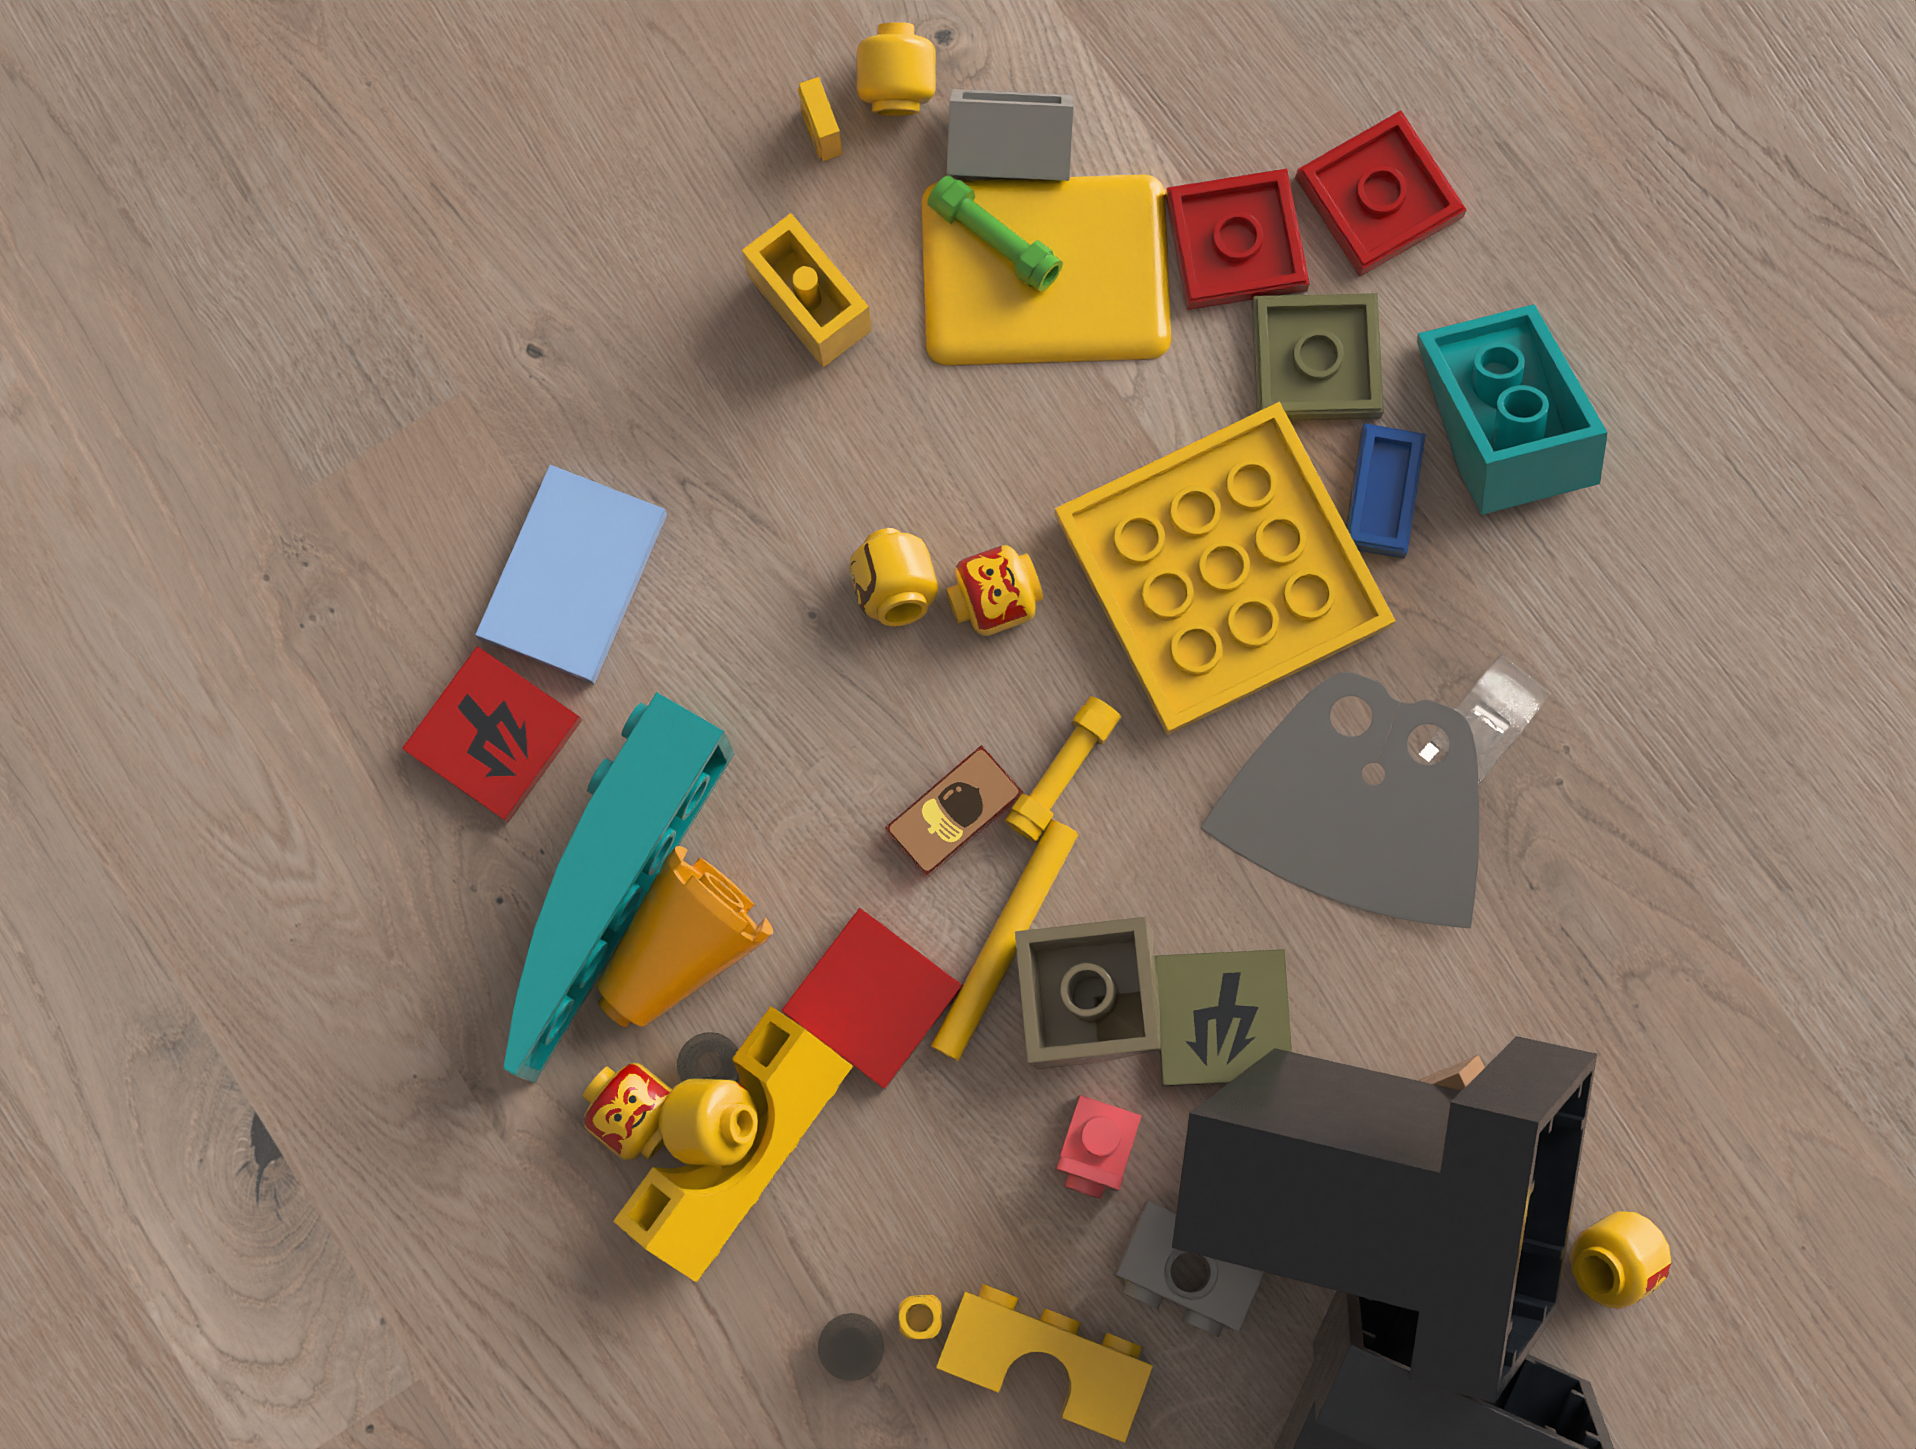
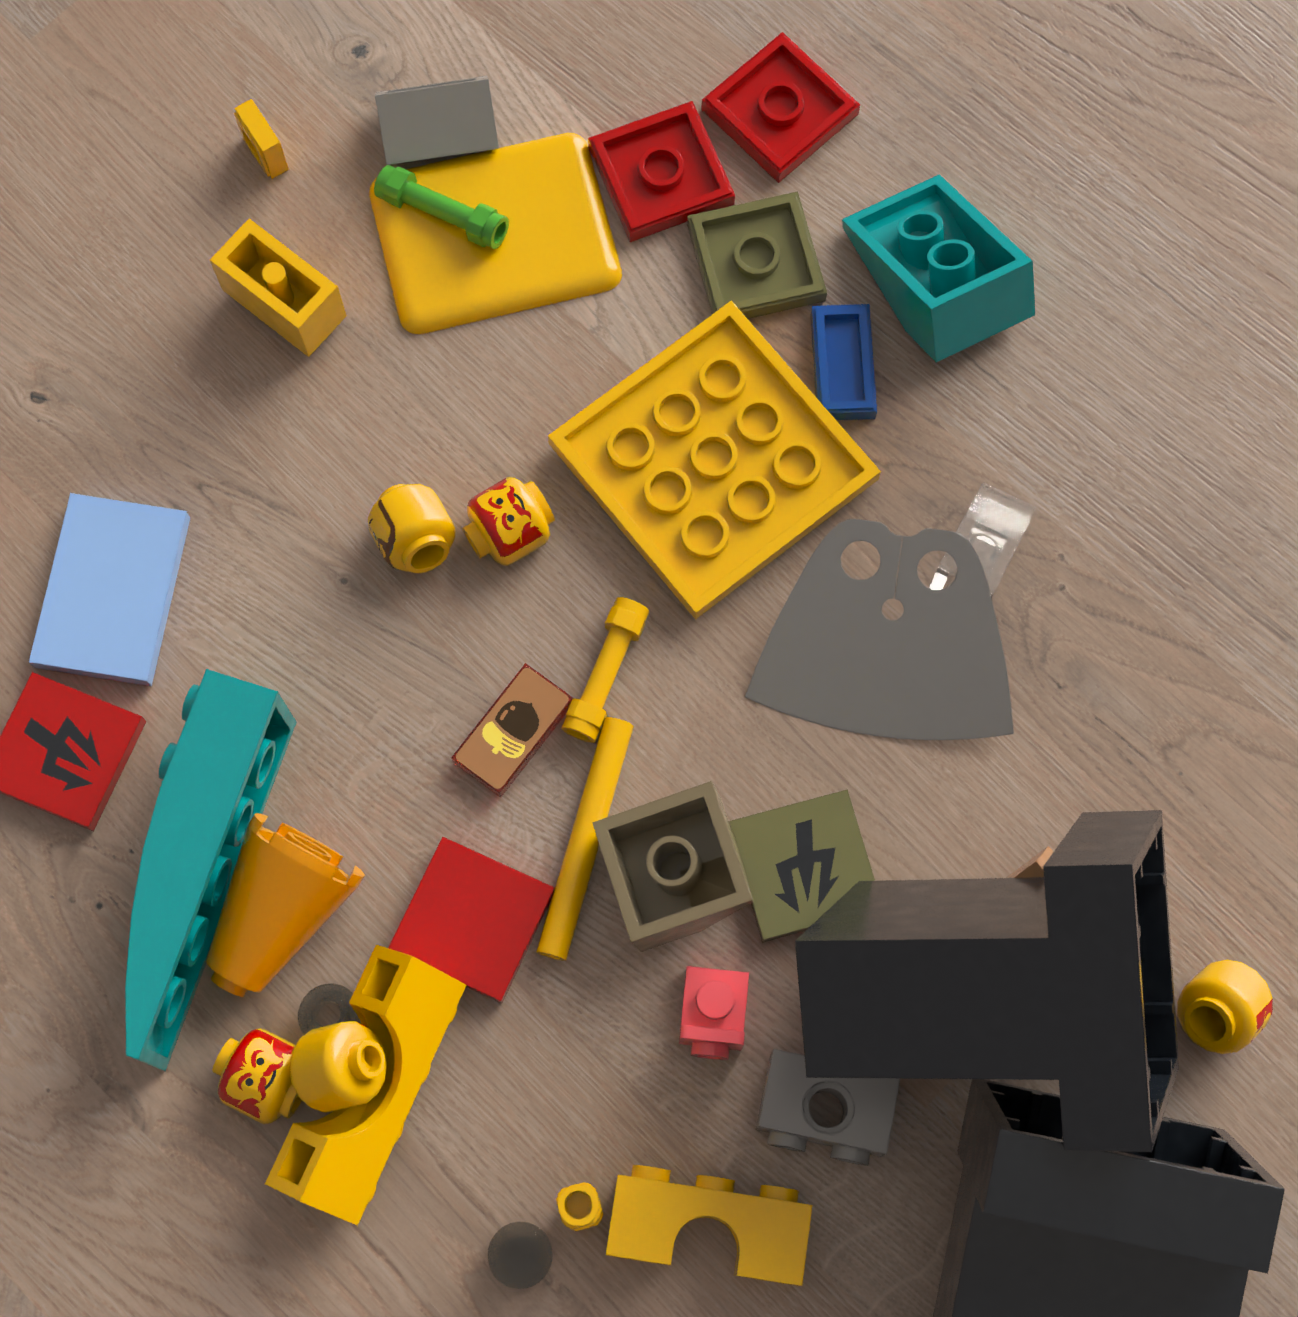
camera: 15 degrees left, 5 degrees down
(895, 70) = (321, 83): yellow head -> none

